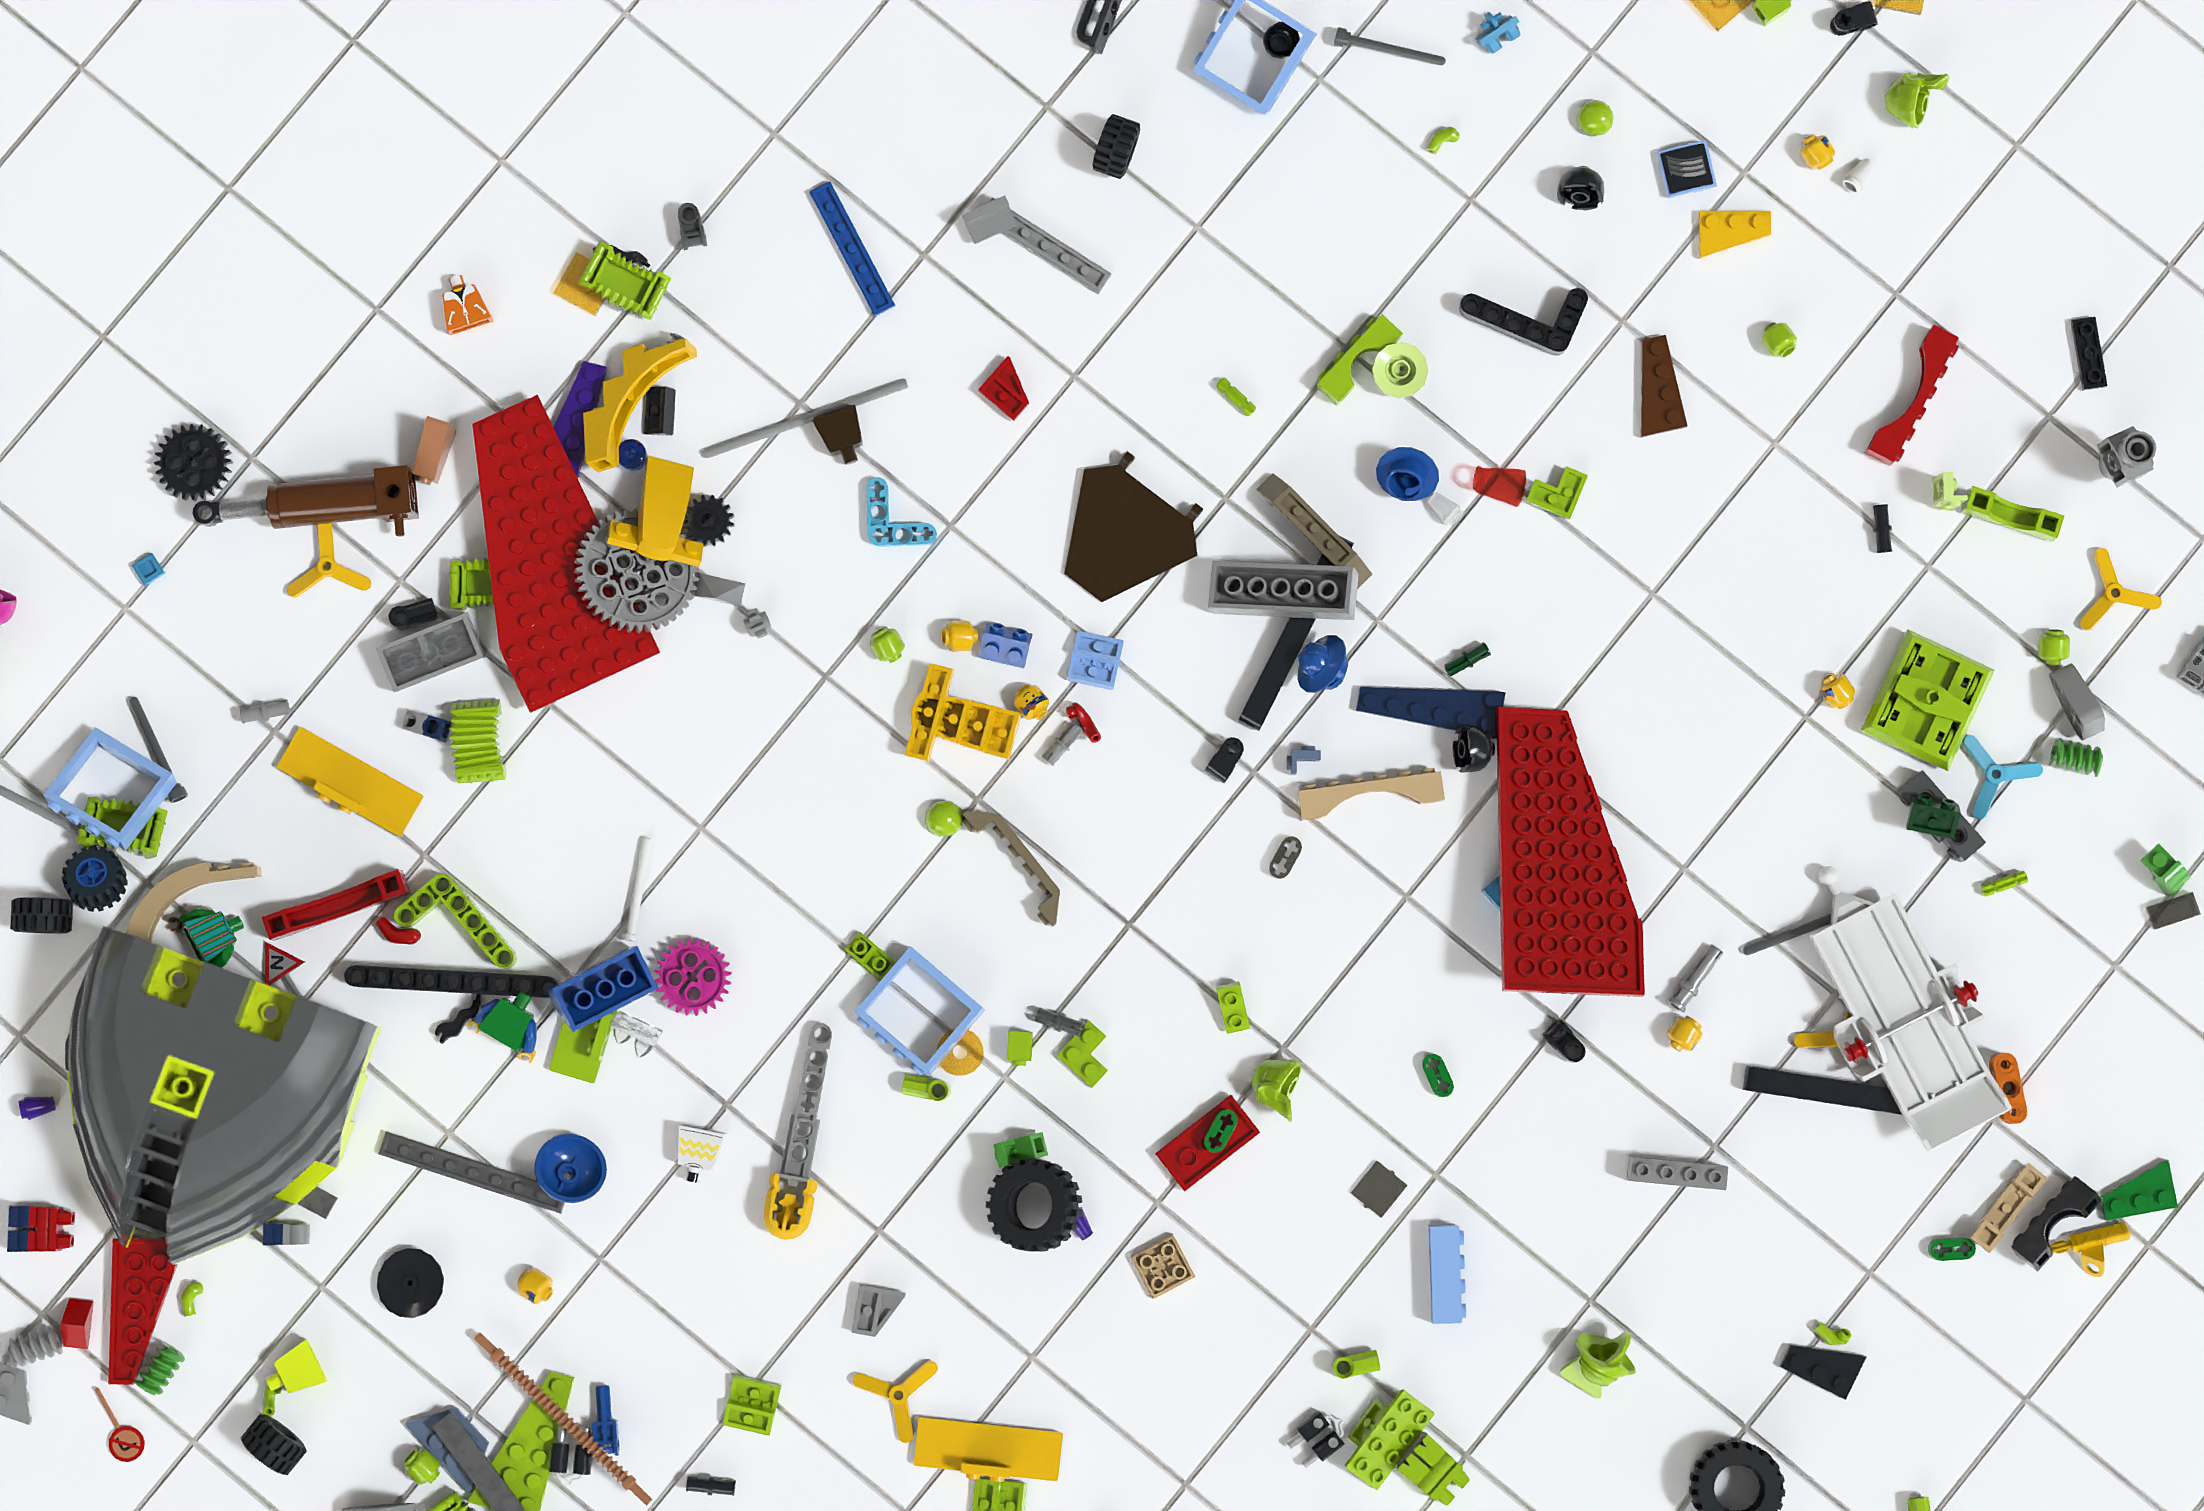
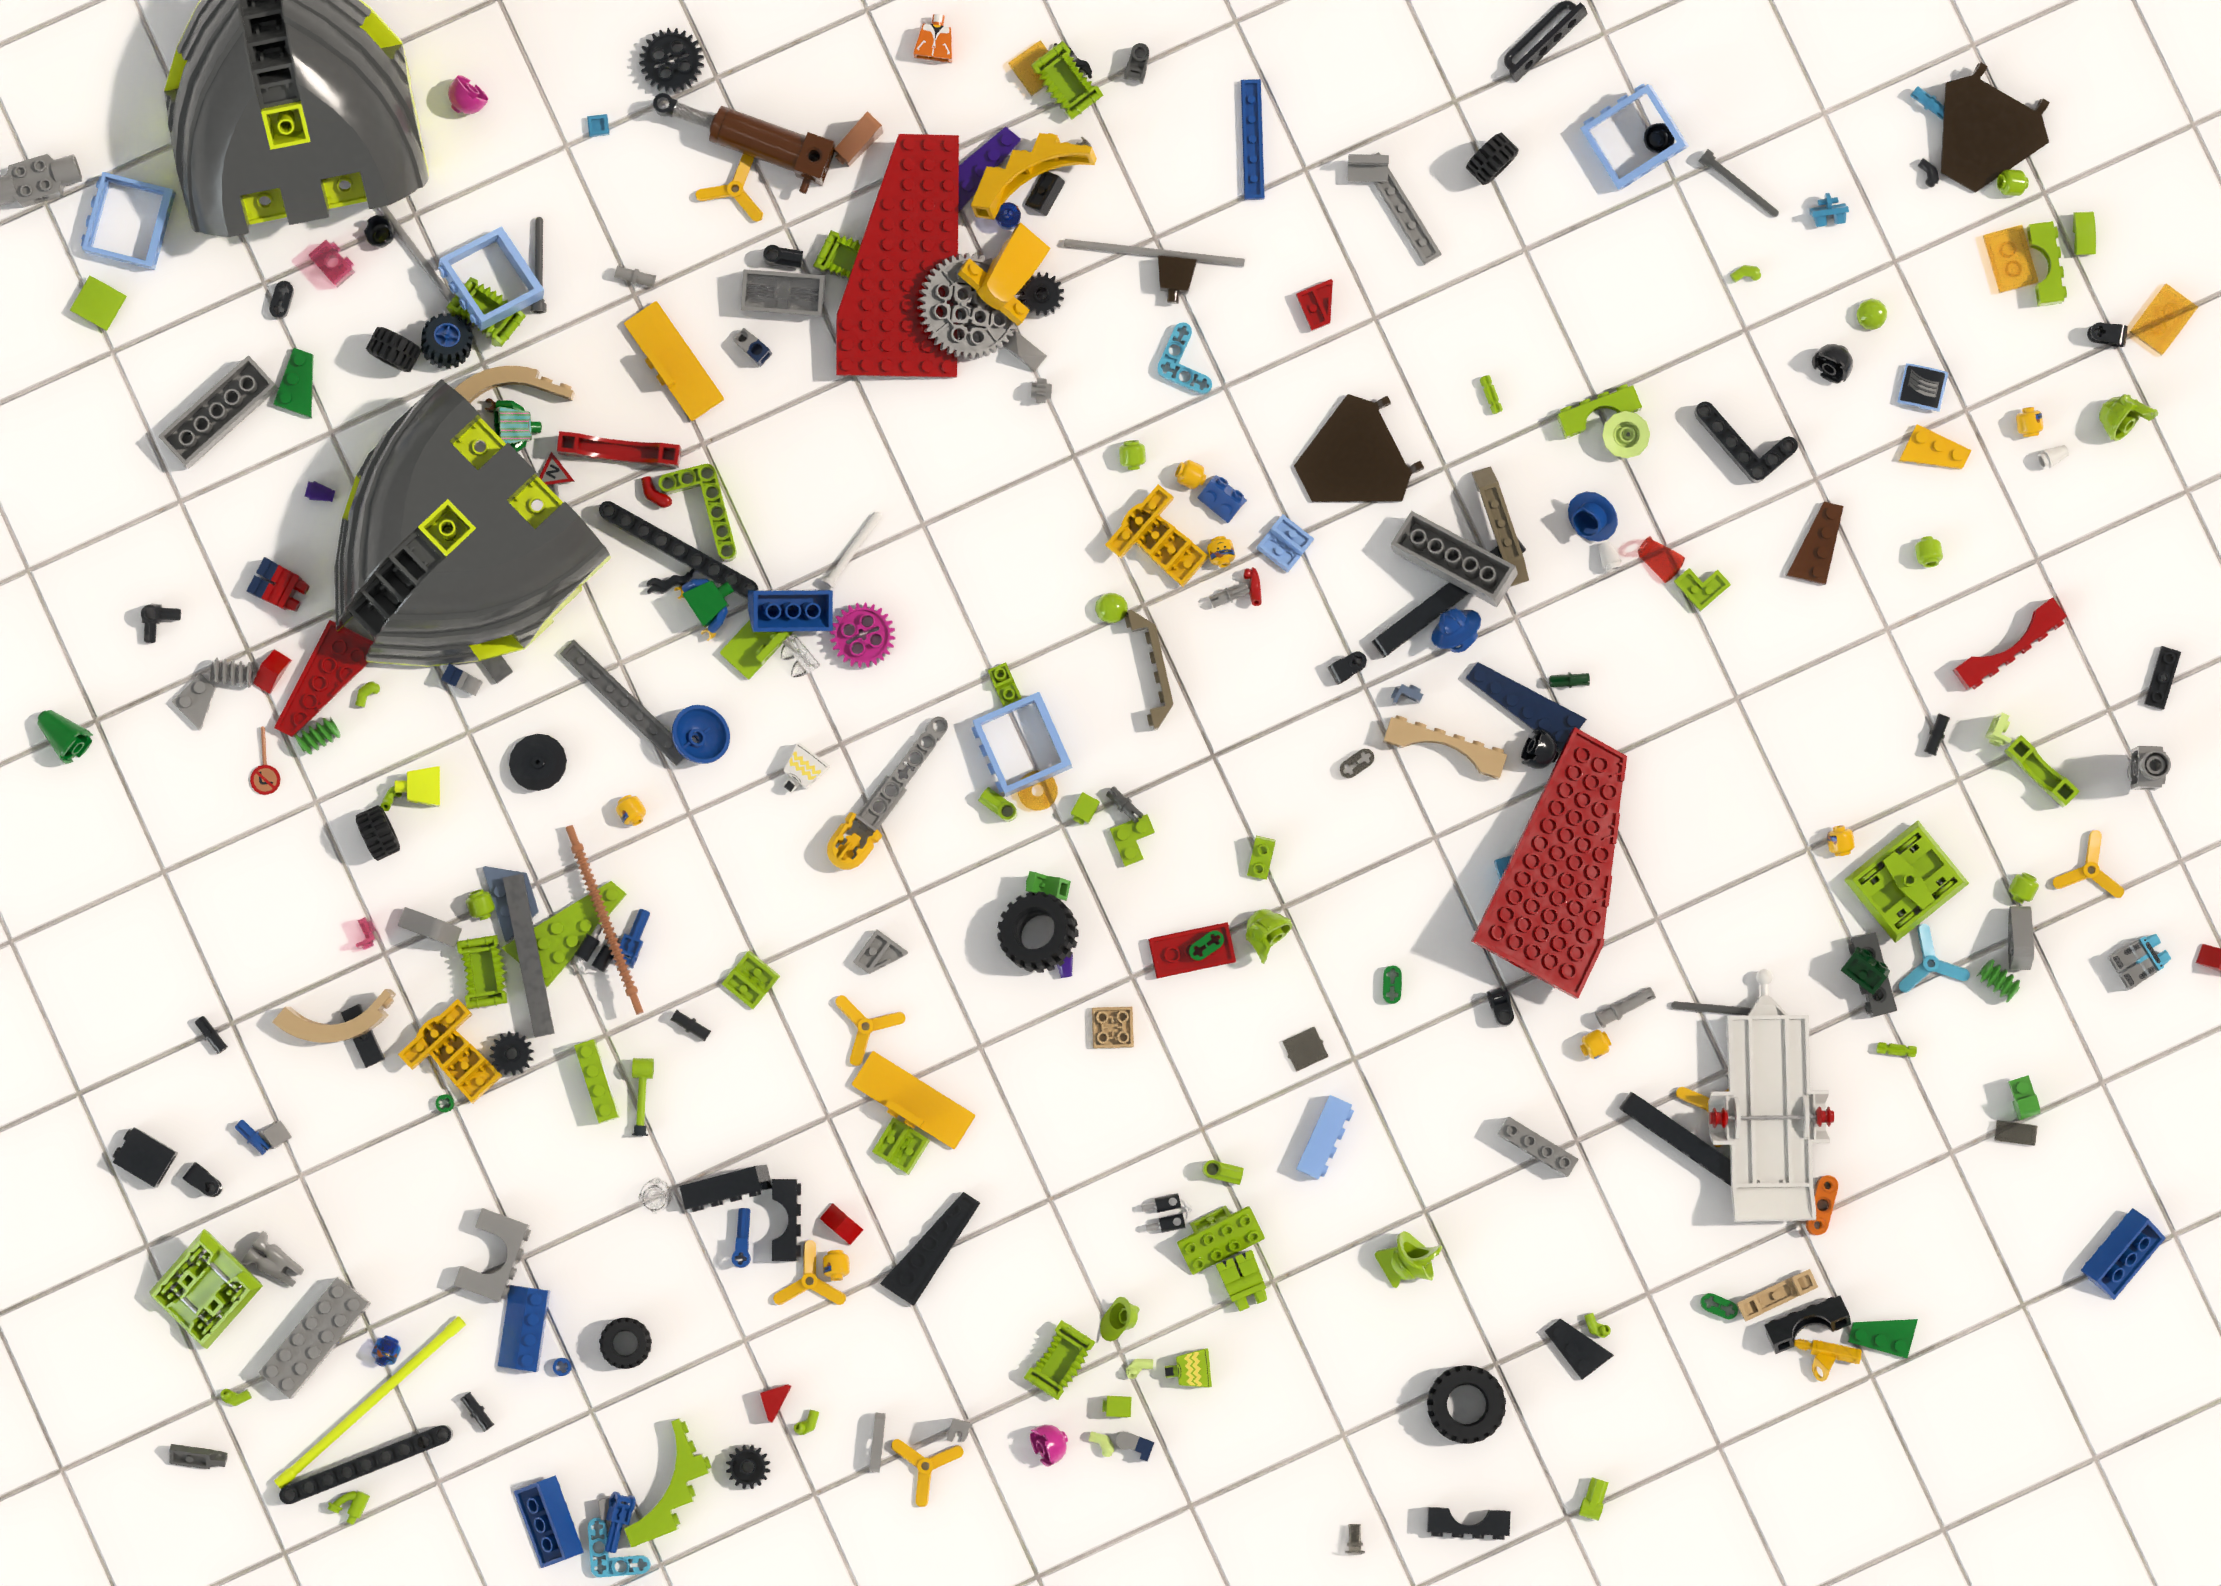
camera: 20 degrees right, 0 degrees up
(476, 741) = (784, 377): lime piece -> none

